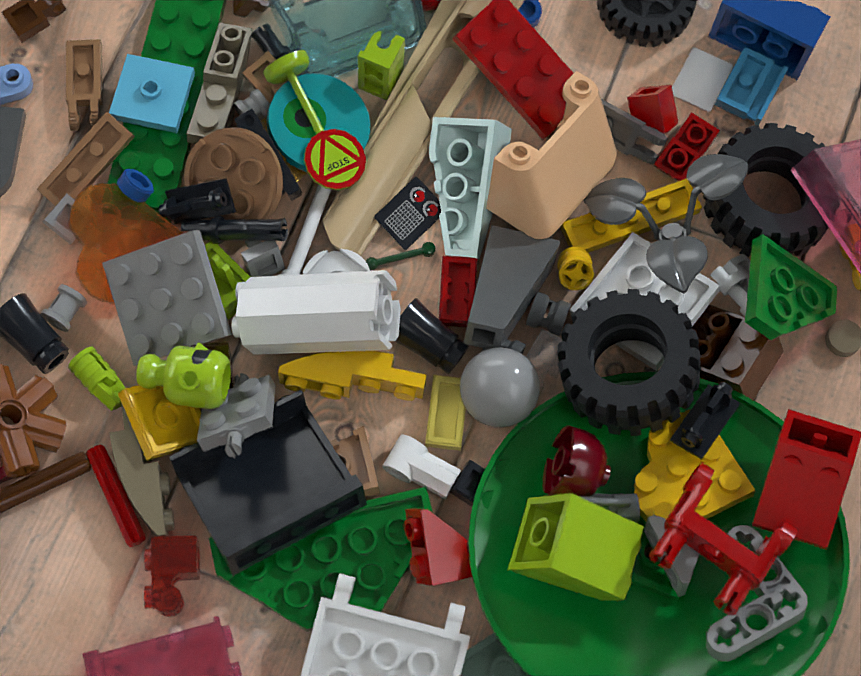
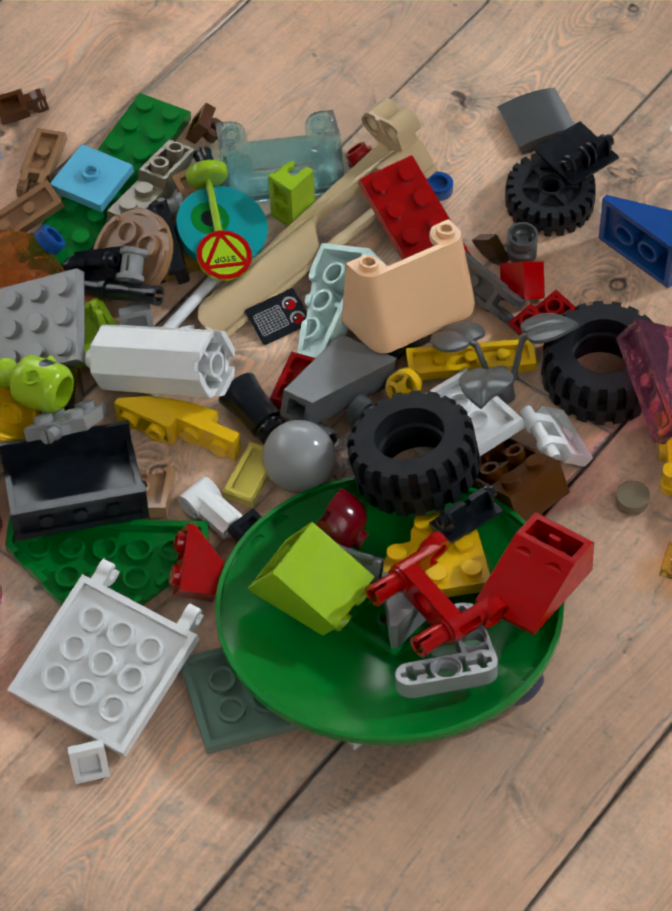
camera: 25 degrees right, 15 degrees down
(243, 200) = (132, 265): none -> light grey bush
(428, 250) = (283, 348): dark green hinge -> none
(607, 77) = (491, 248): none -> dark brown tile
(638, 65) = (522, 242): none -> dark grey wheel
(701, 79) = (579, 269): white sticker -> none
(751, 86) = (620, 279): dark azure plate -> none
(785, 291) = (581, 438): green plate -> none

